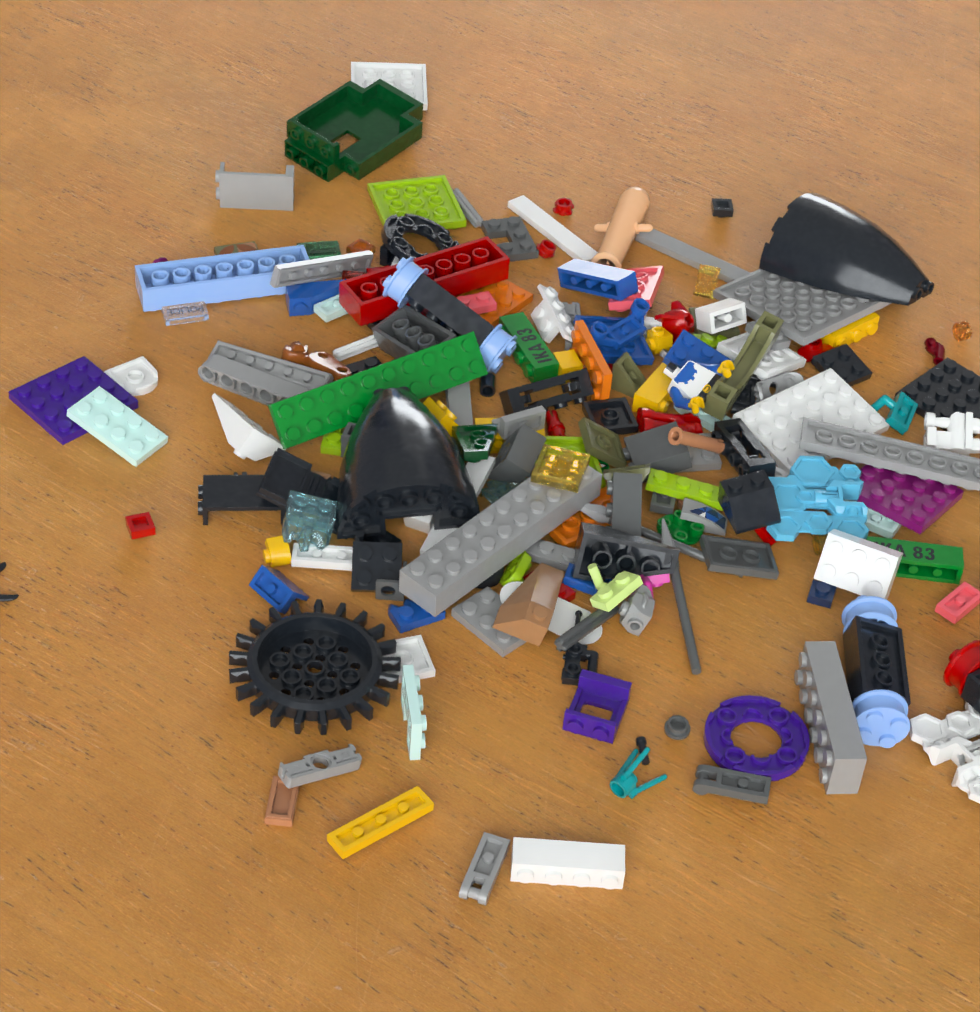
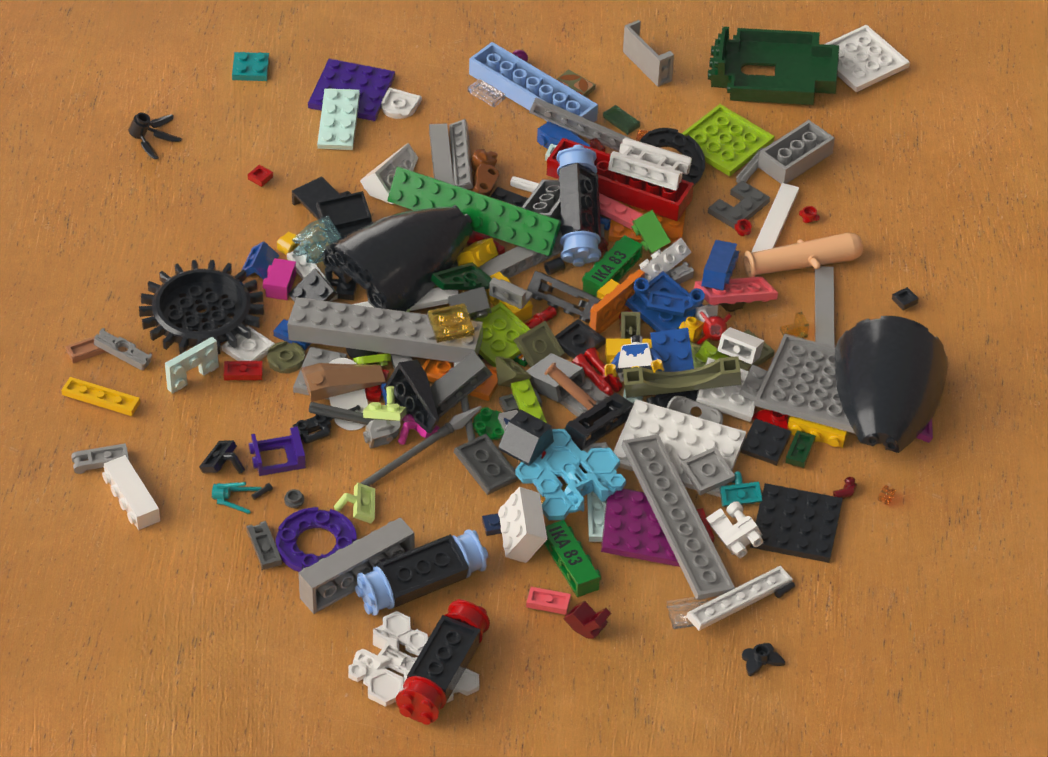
camera: 60 degrees right, 5 degrees up
(325, 582) = (280, 279): none -> dark pink brick
(440, 244) = (650, 163): none -> white fence
(443, 679) = (243, 370): none -> red plate
(447, 637) = (285, 357): none -> olive tile
(482, 172) = (796, 152): none -> light grey brick
(513, 296) = (650, 231): none -> bright green brick
(568, 758) = (217, 457): none -> black plate
(724, 672) = (363, 502): none -> yellowish green plate
(868, 352) = (800, 449): none -> dark green plate
(868, 413) = (707, 471): none -> light grey plate

